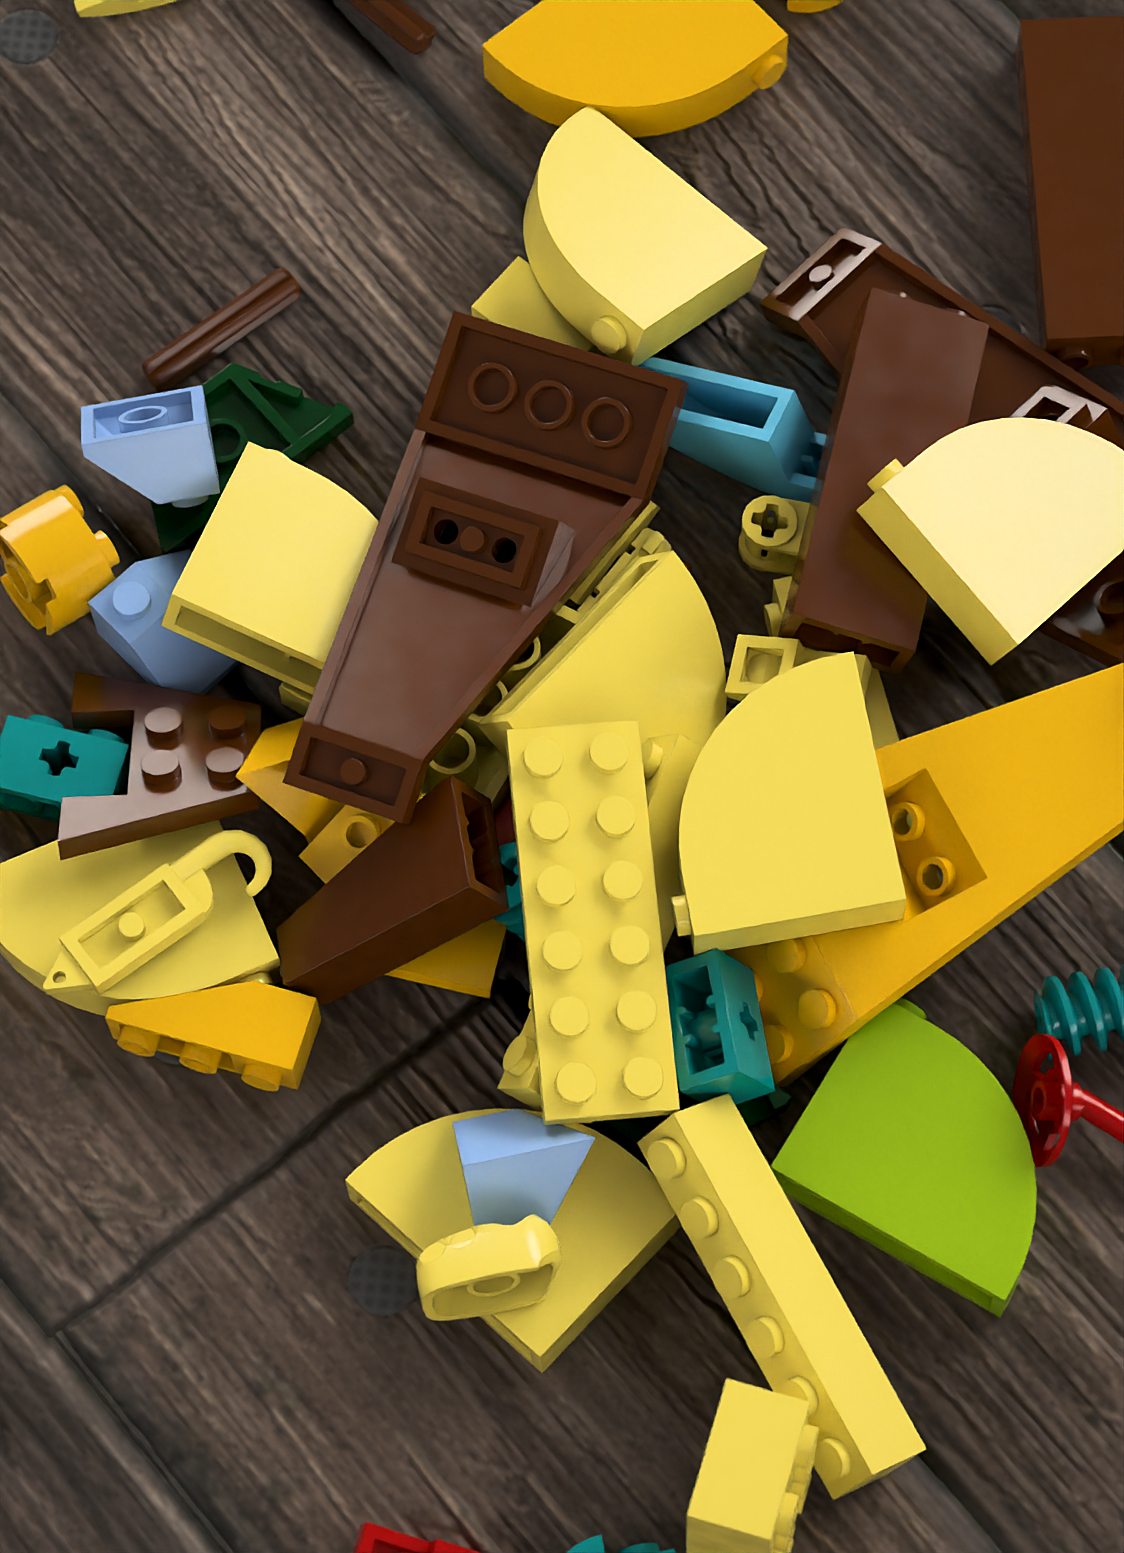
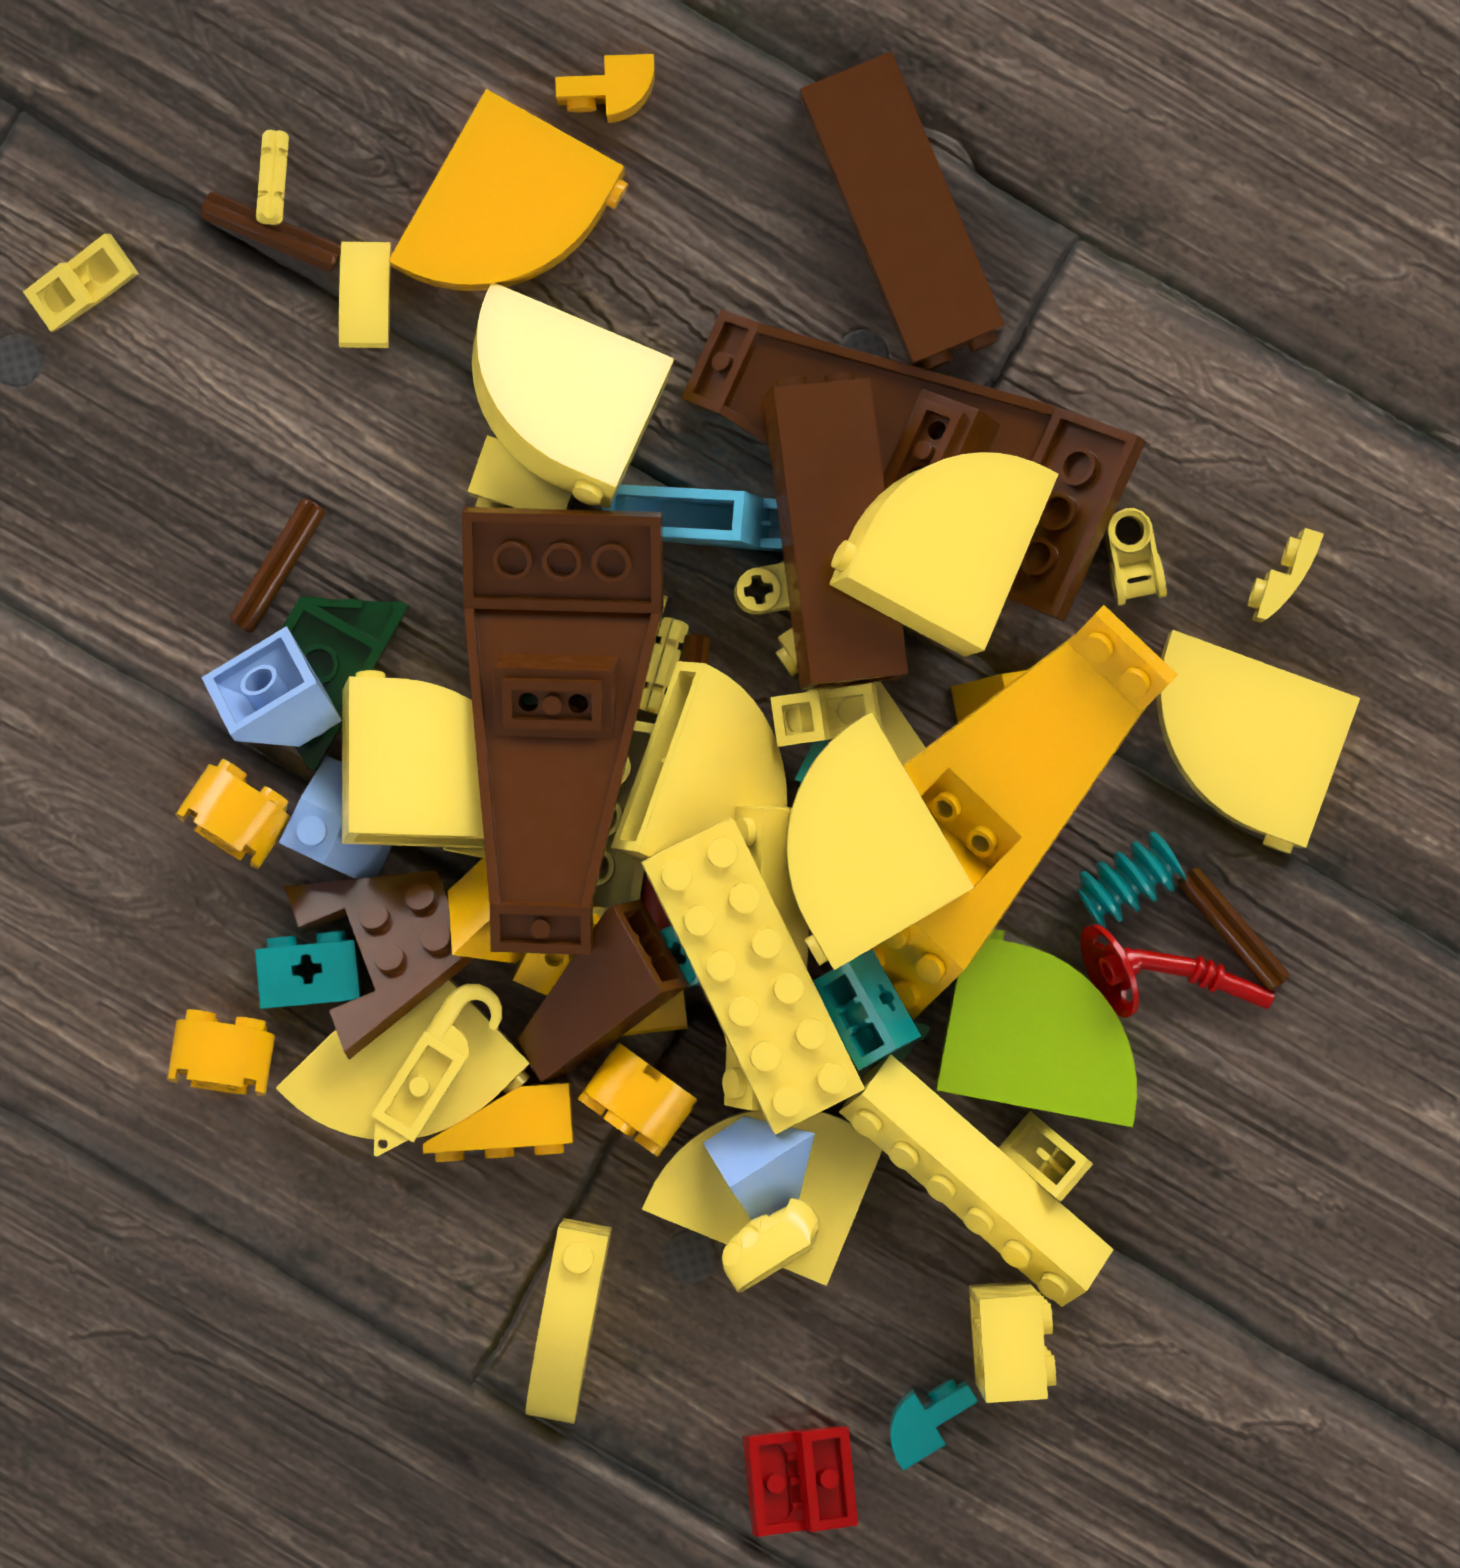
camera: 25 degrees left, 20 degrees up
(196, 1270) = (567, 1320): none -> light yellow brick
(397, 1045) = (638, 1099): none -> yellow brick
(439, 86) = (364, 295): none -> light yellow slope
(887, 1309) = (1045, 1156): none -> light yellow slope

